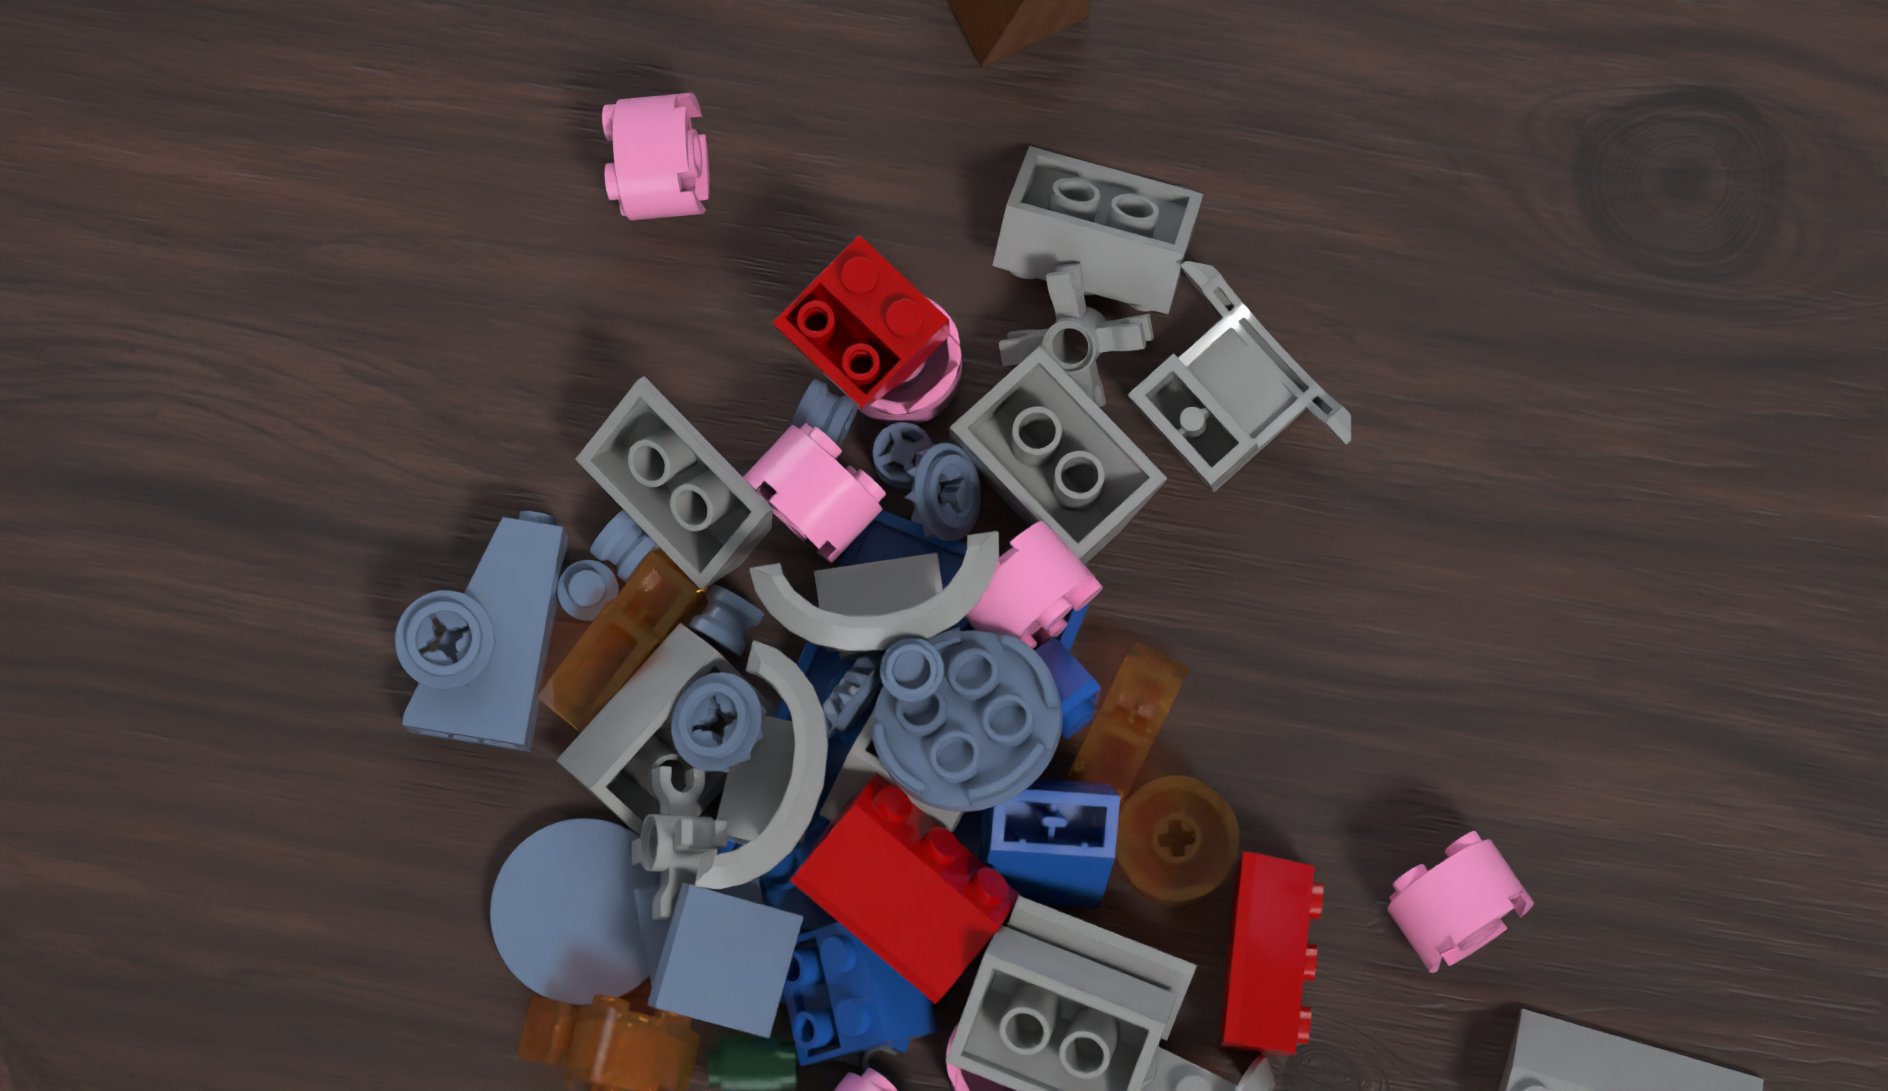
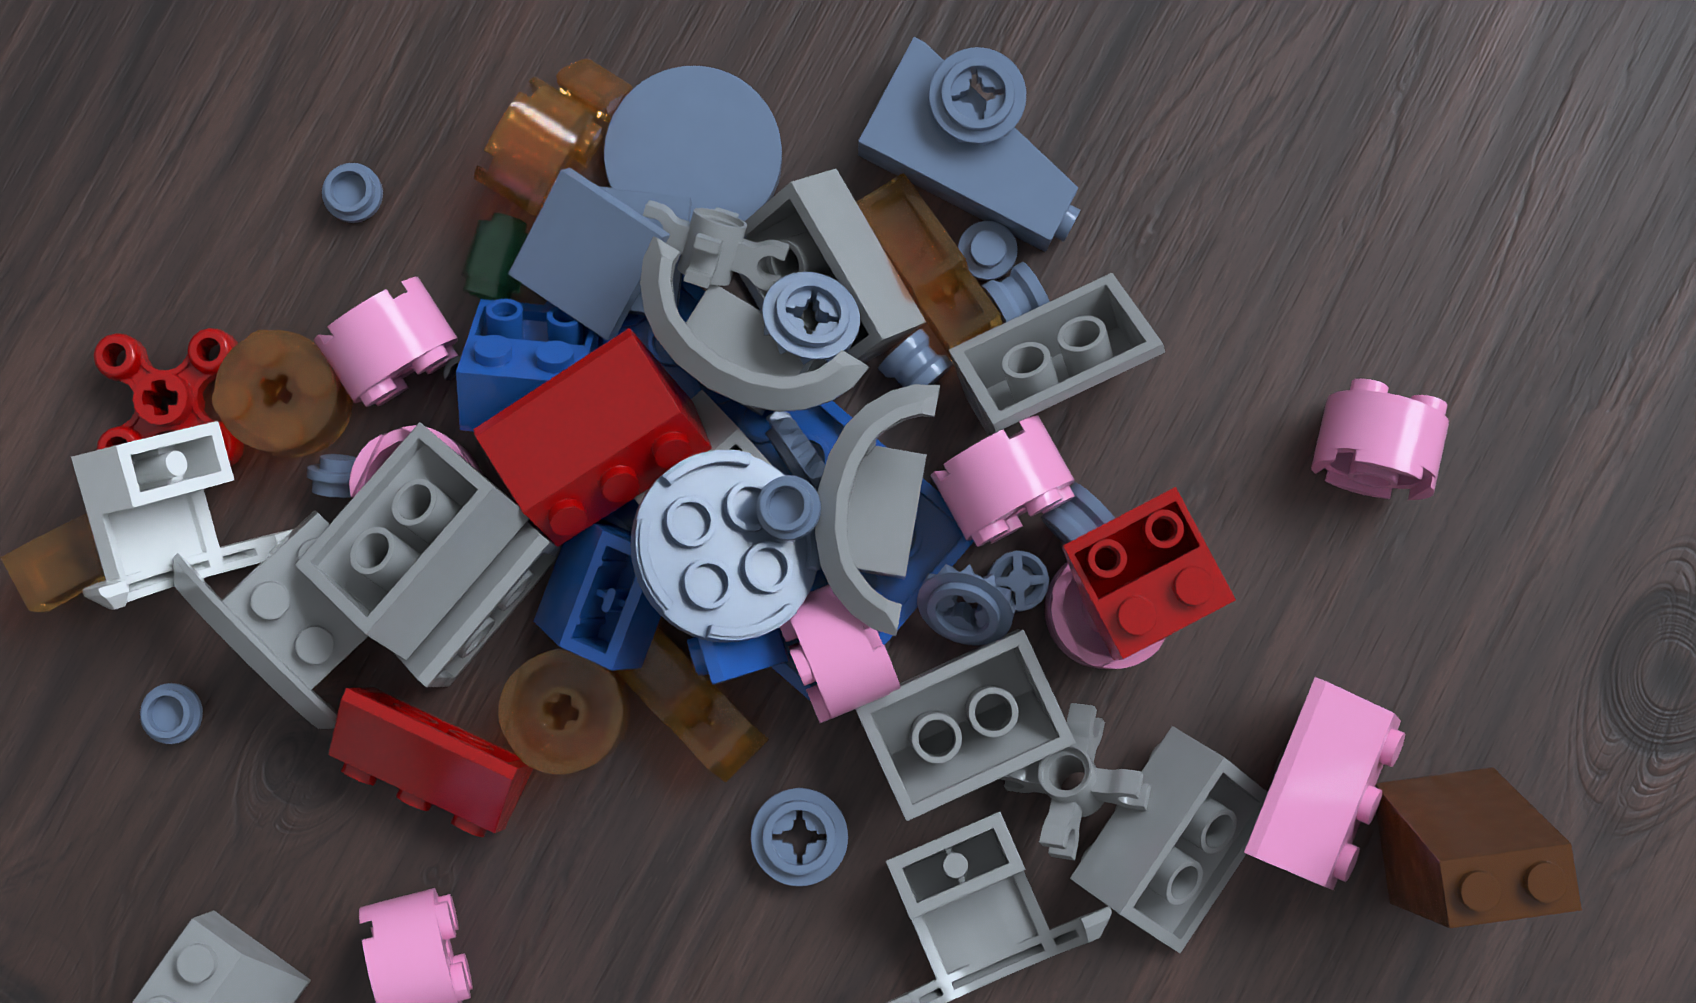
camera: 105 degrees right, 5 degrees up
(1000, 105) = (1326, 785): none -> bright pink slope
(1232, 558) = (778, 857): none -> sand blue gear

